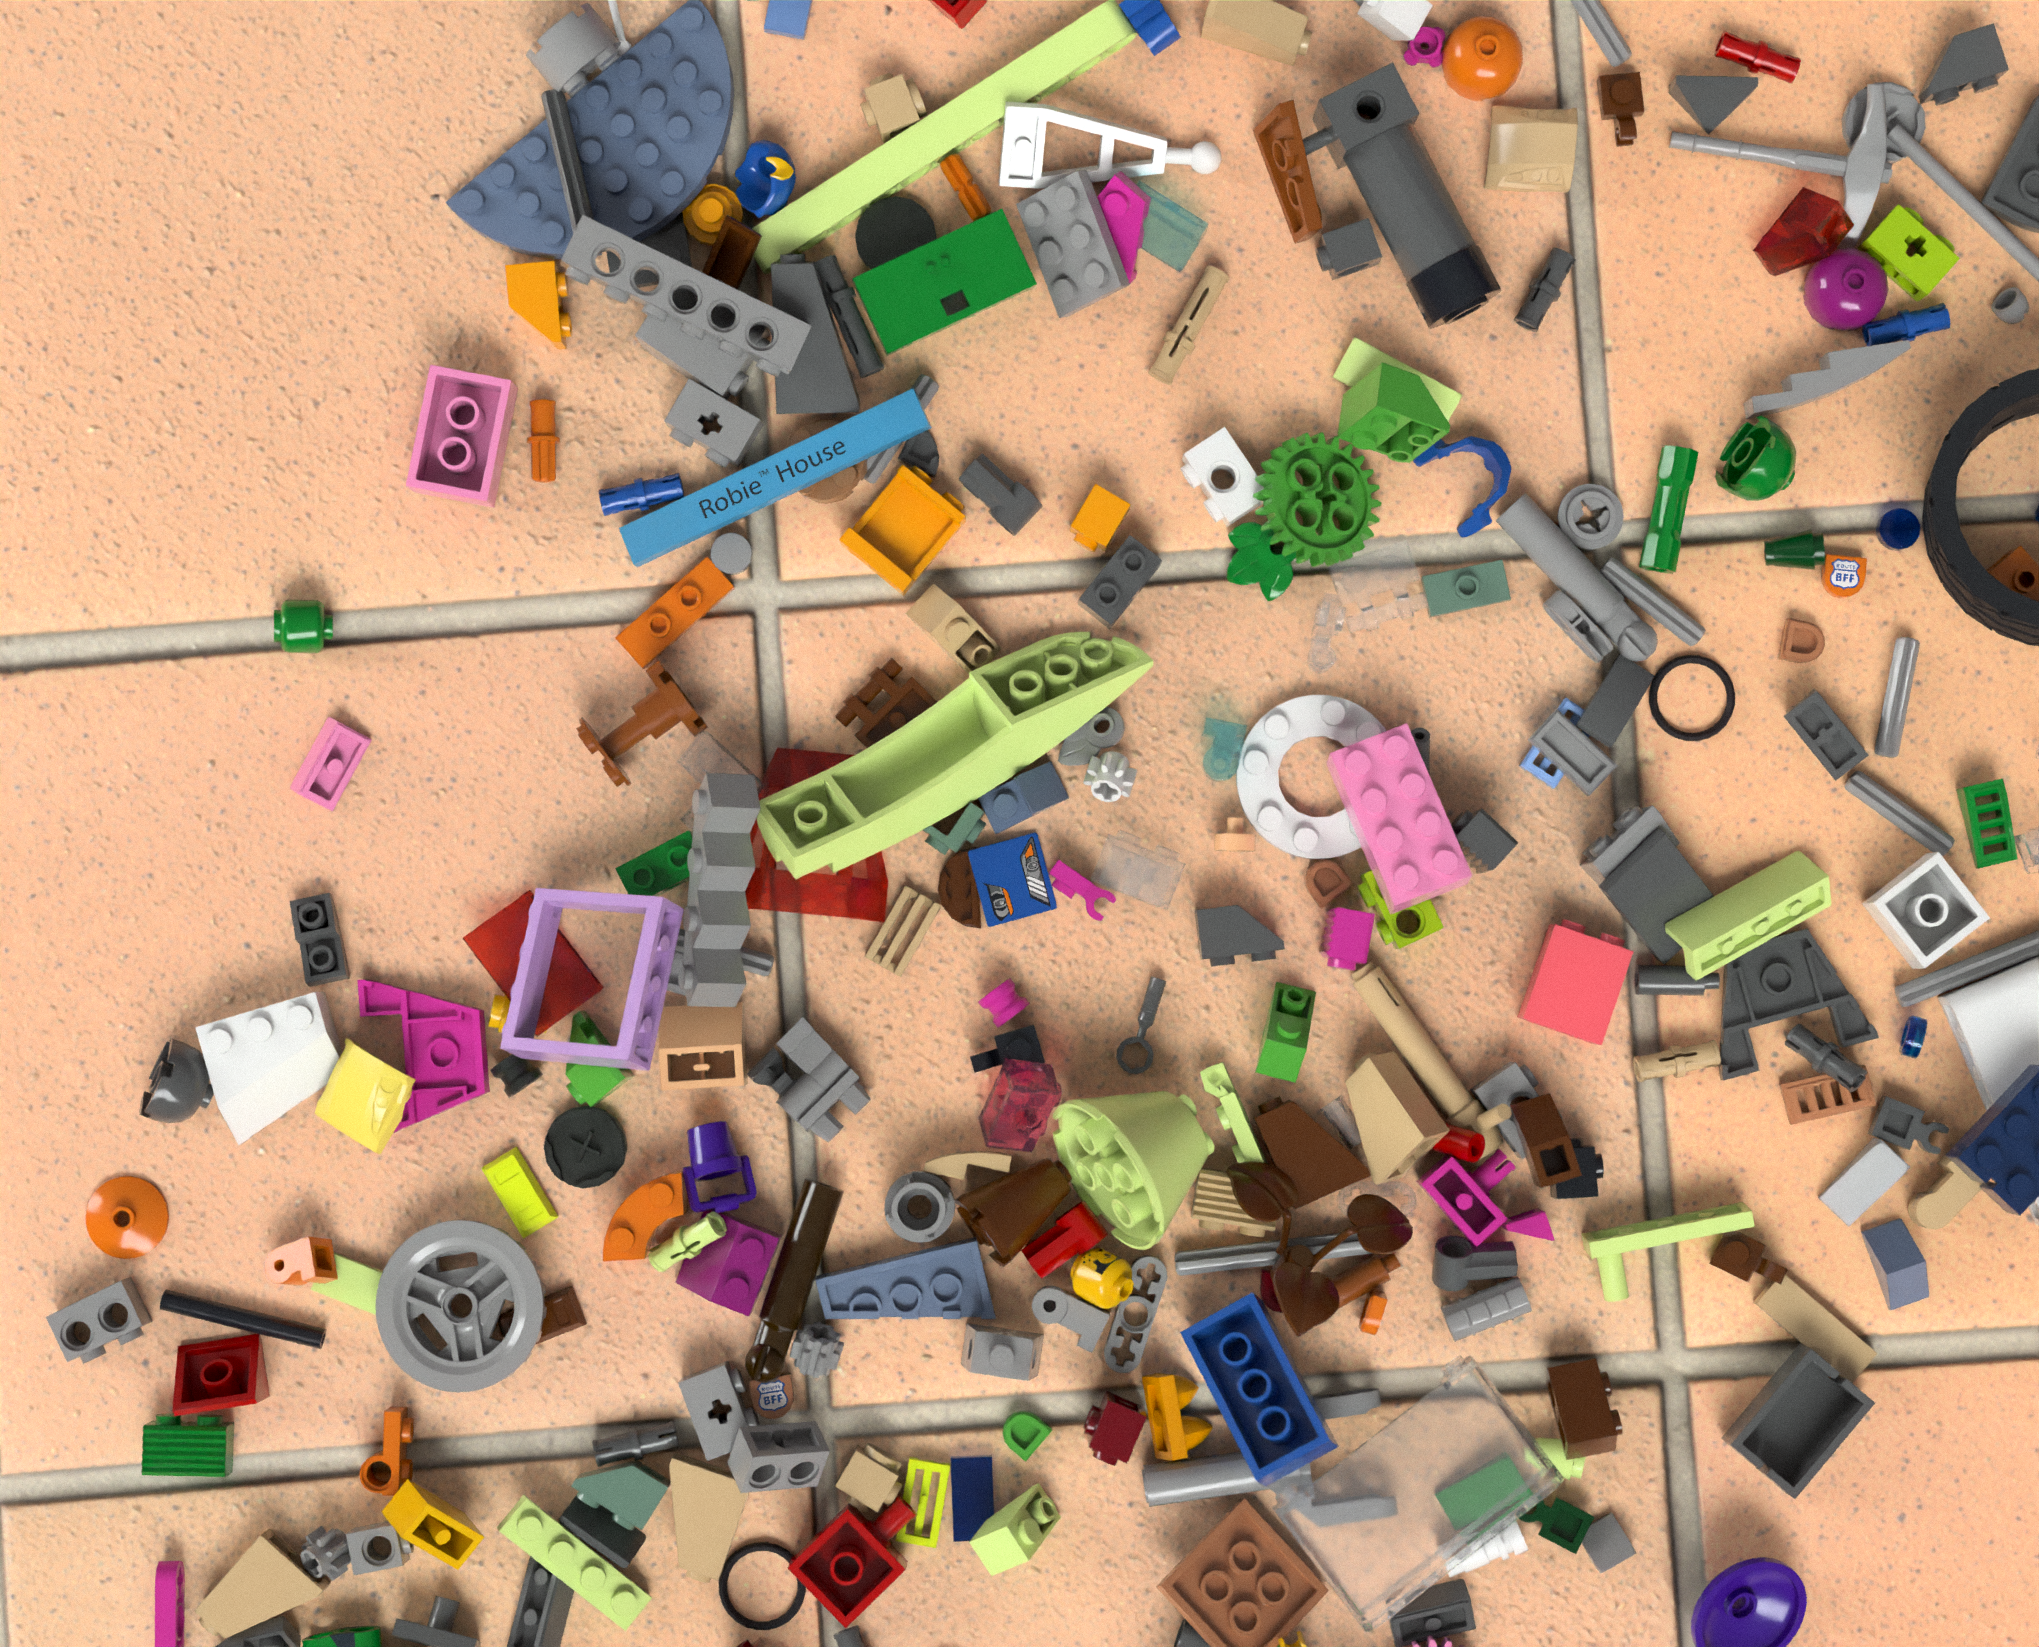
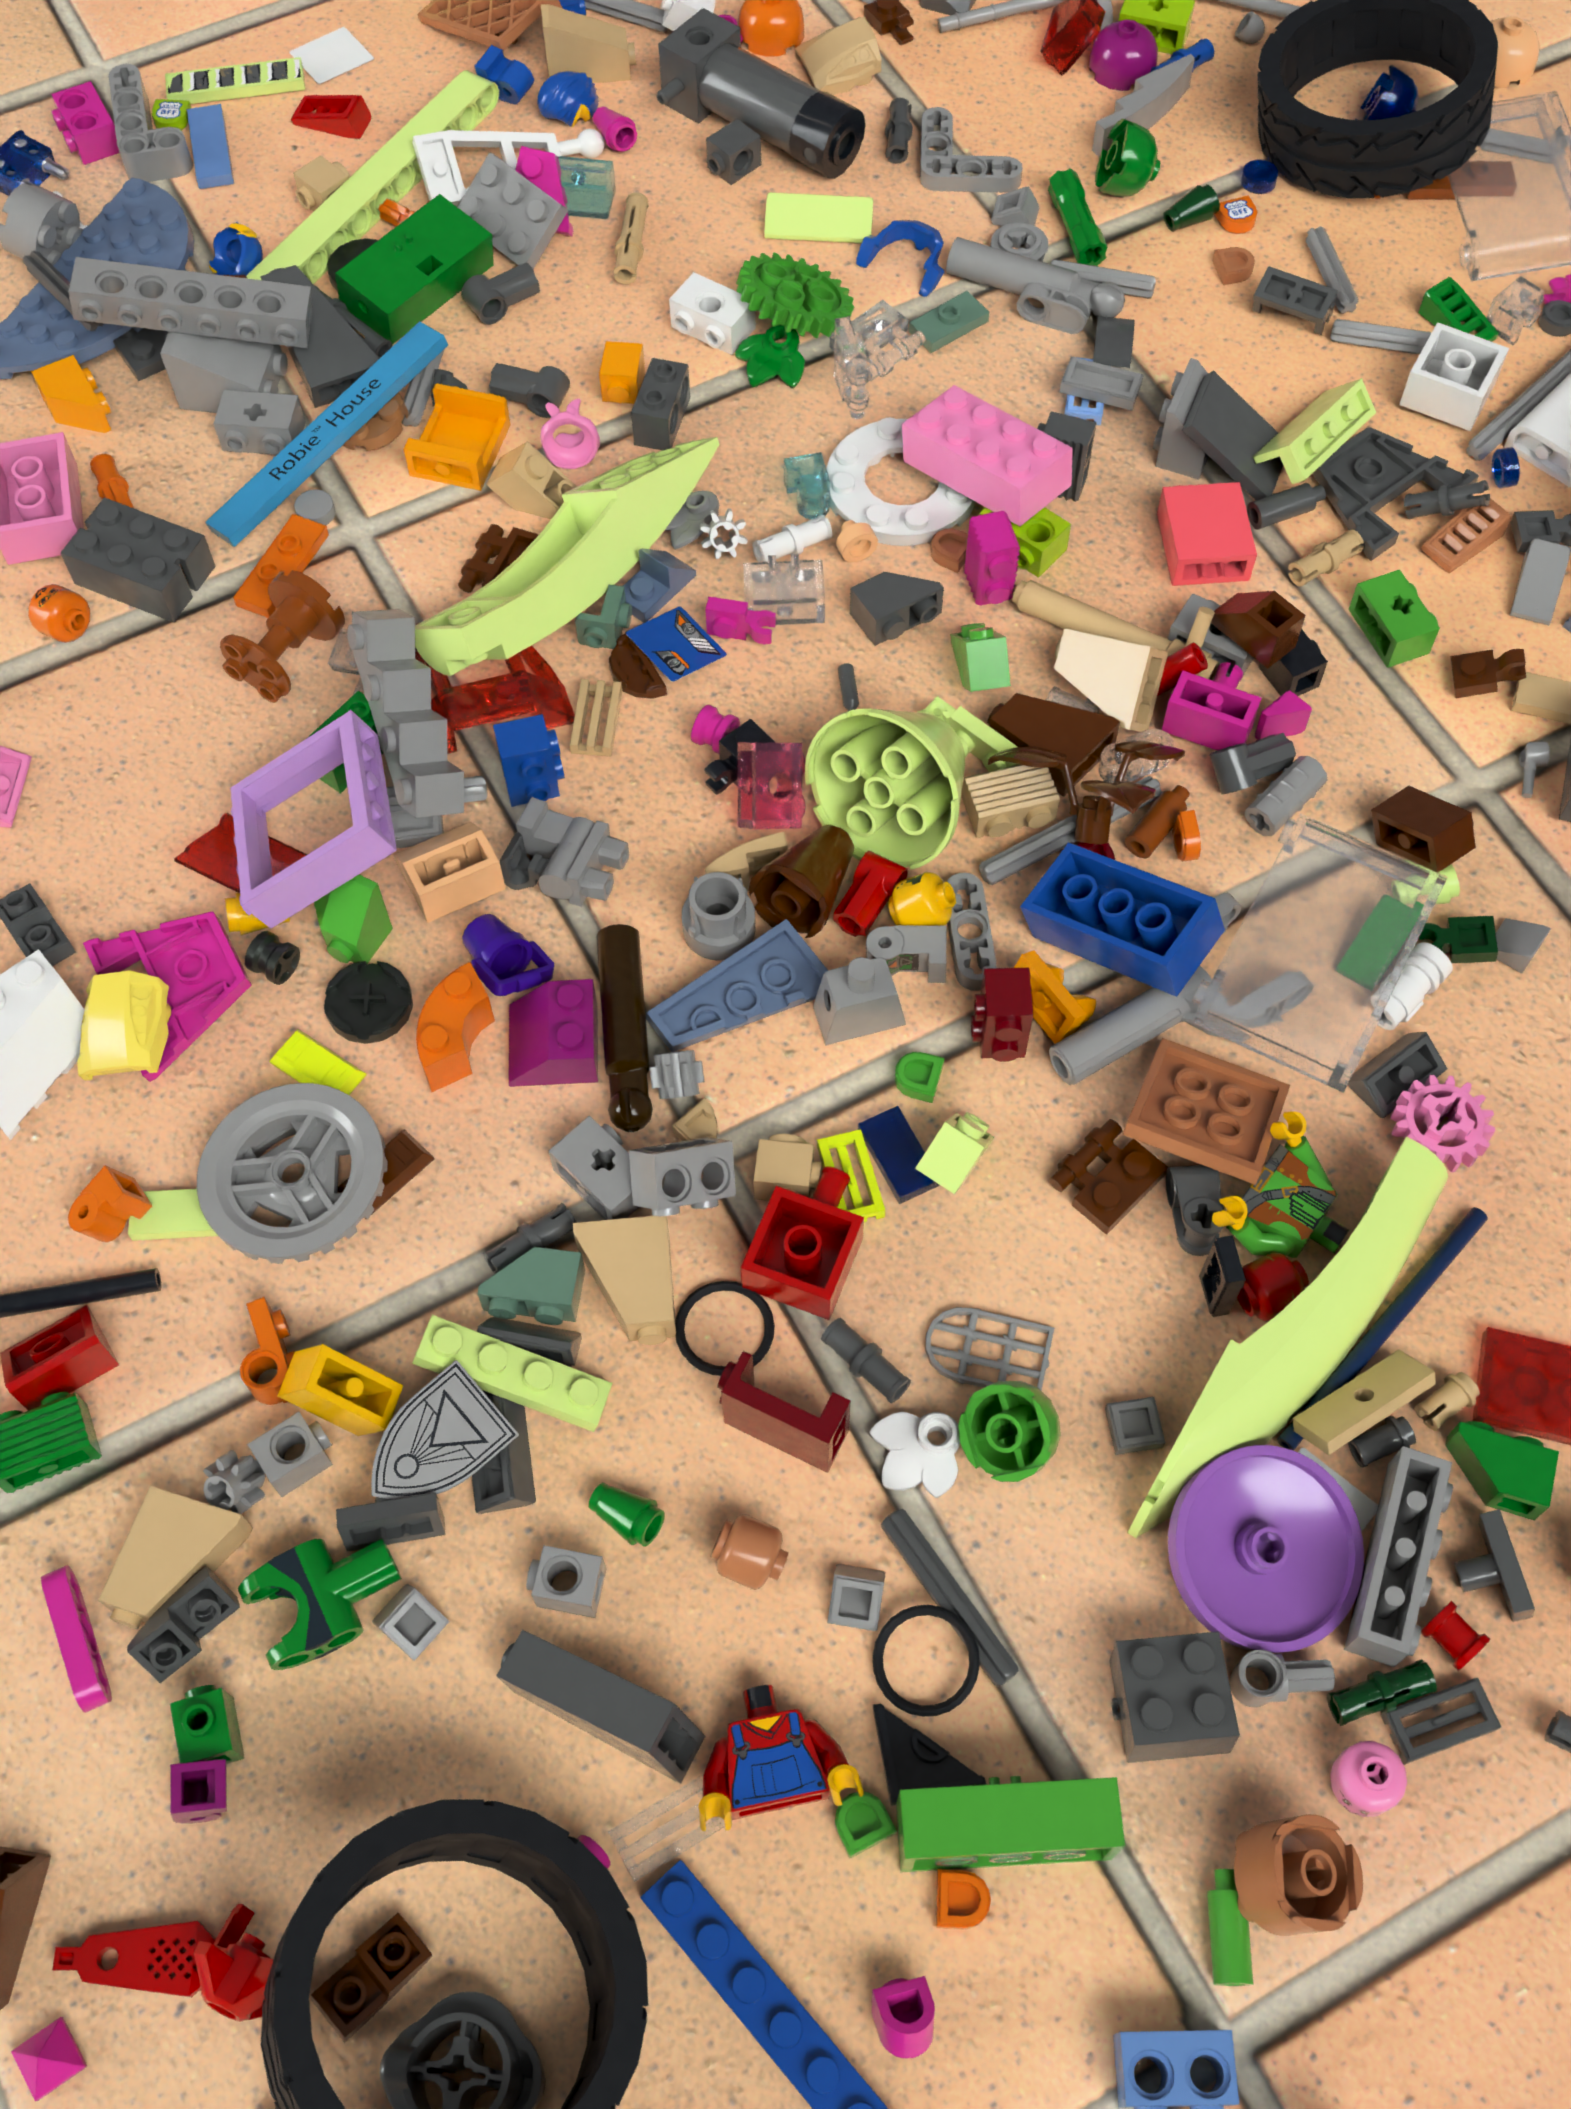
camera: 25 degrees left, 25 degrees down
(444, 587) = (57, 612): none -> orange head
(496, 1596) = (439, 1438): none -> light grey shield
(538, 555) = (138, 559): none -> dark grey piece
(641, 494) = (213, 495): blue pin -> none
(687, 1242) = (488, 1056): yellowish green pin -> none
(773, 1398) = (654, 1133): tile -> none
(815, 977) = (529, 759): none -> blue brick
(817, 1398) = (697, 1123): none -> tan tile
(1010, 347) = (493, 296): none -> dark grey piece
(1012, 585) = (569, 450): none -> bright pink piece
(1137, 1610) = (1118, 1185): none -> reddish brown plate
(1175, 807) = (793, 539): none -> white pin
(1206, 81) = (568, 97): none -> blue hair
(1239, 153) = (615, 129): none -> dark pink cone
(1289, 171) = (659, 115): dark orange wing -> none
(1391, 414) = (825, 218): bright green slope -> none
(1572, 356) = (938, 165): none -> light grey beam
(1610, 1243) = (1363, 702): yellowish green piece -> none
(1613, 460) = (1015, 207): none -> light grey slope
(1687, 1184) = (1394, 618): none -> bright green brick
(1693, 659) = (1173, 303): black tyre -> none
(1736, 1363) = (1533, 755): none -> light grey hand

